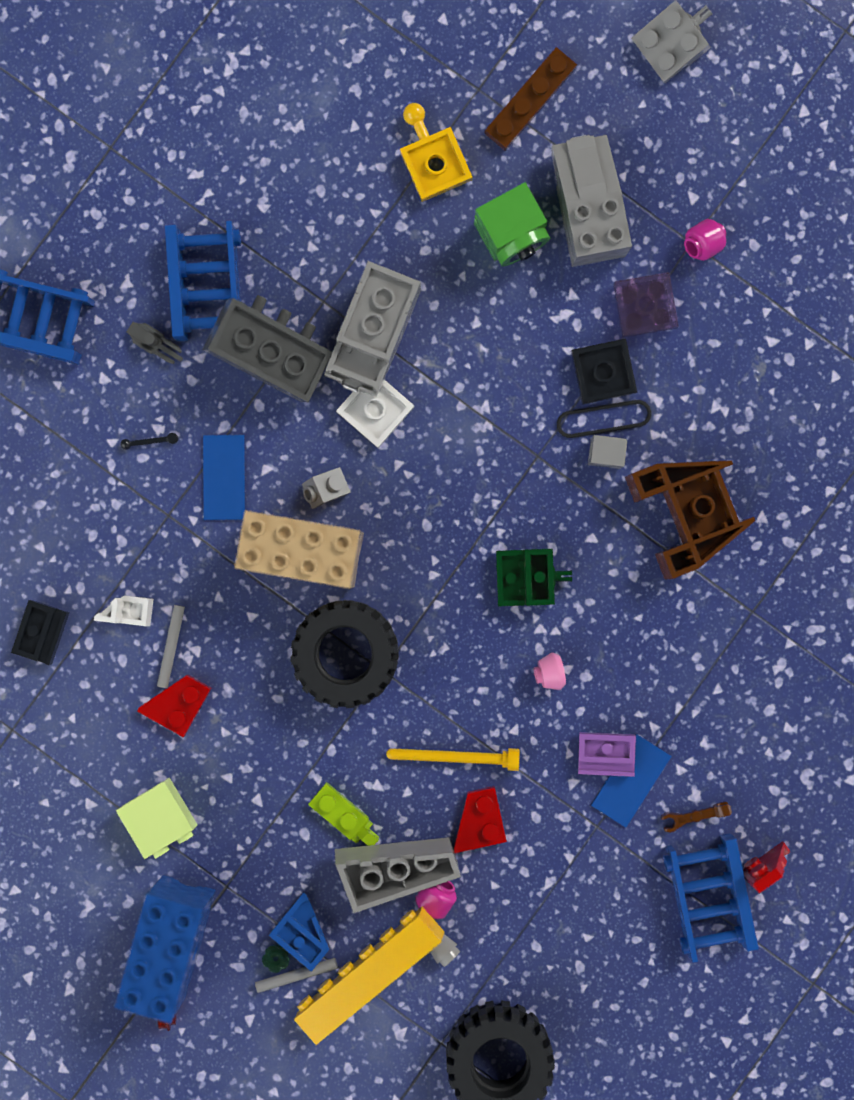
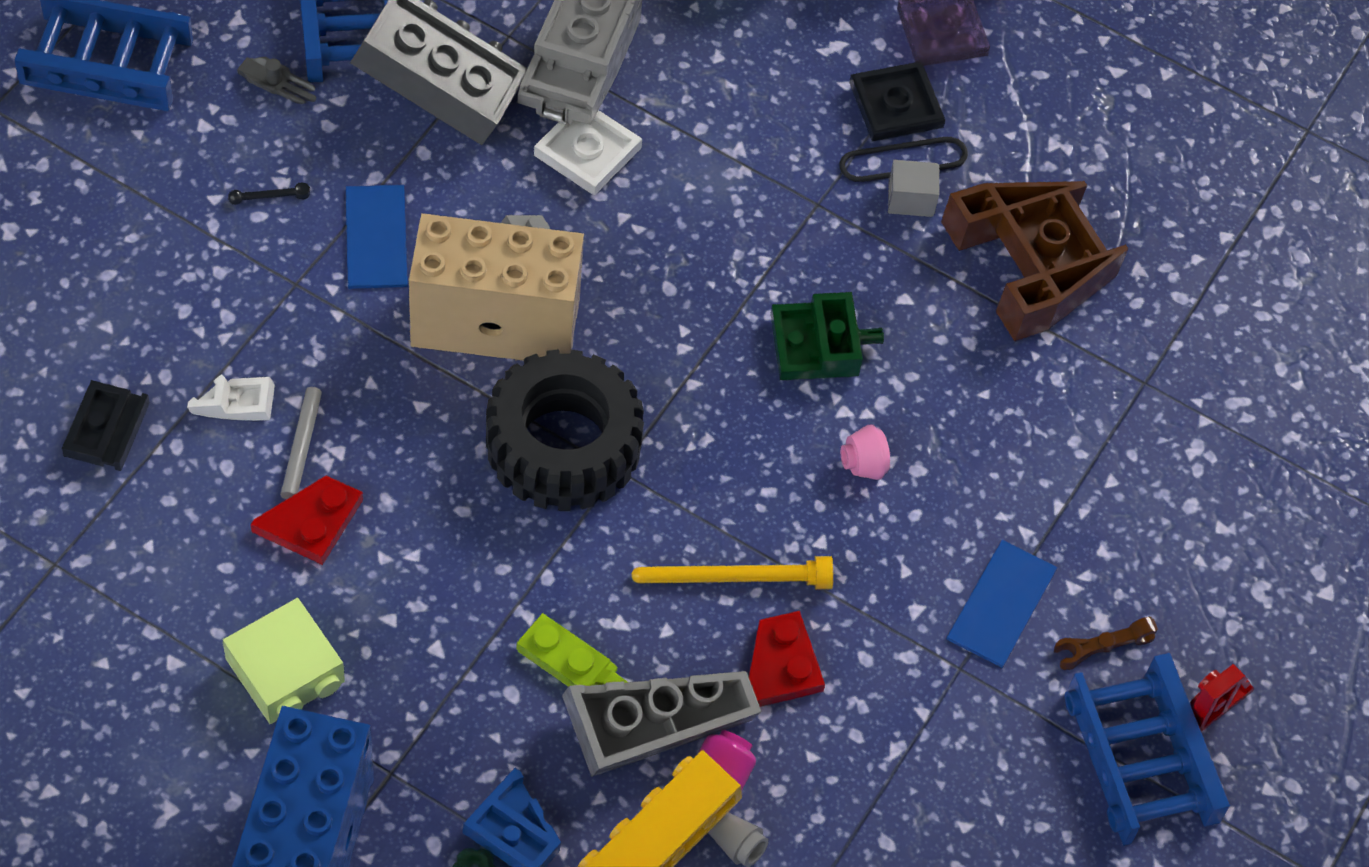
camera: 10 degrees left, 30 degrees down
(607, 754) = (961, 559): medium lavender plate -> none

